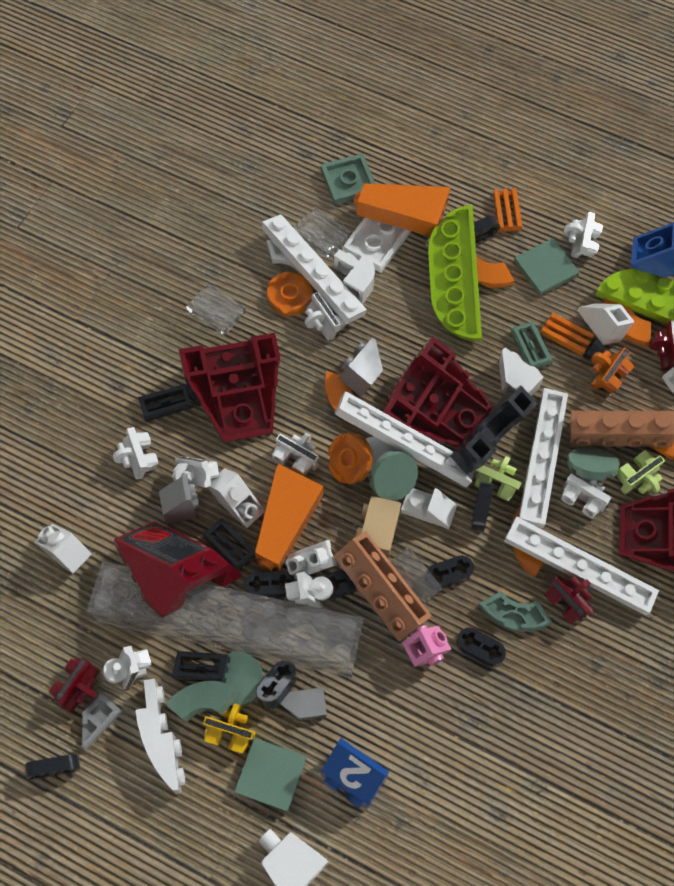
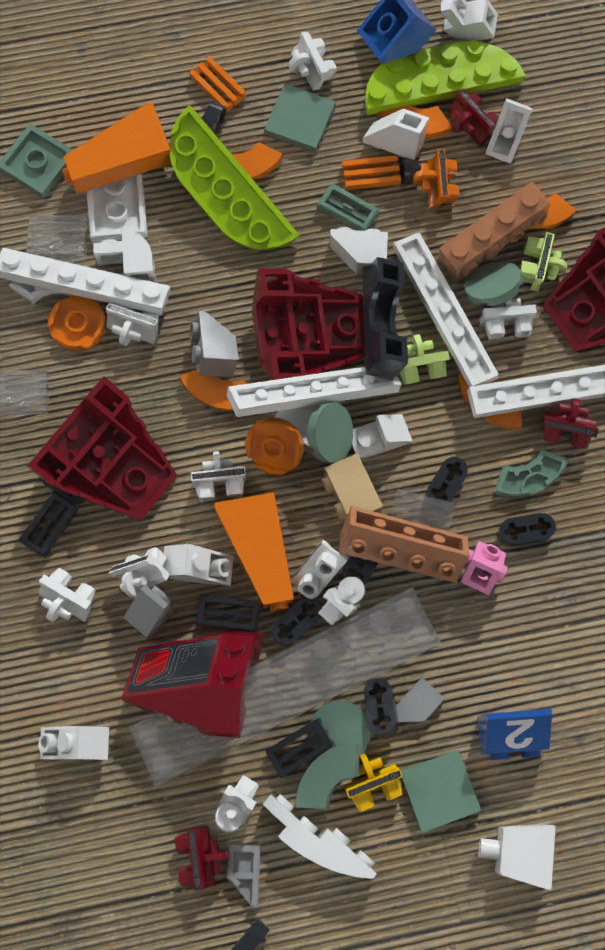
camera: 40 degrees left, 10 degrees up
(482, 506) = (429, 400): black beam -> none

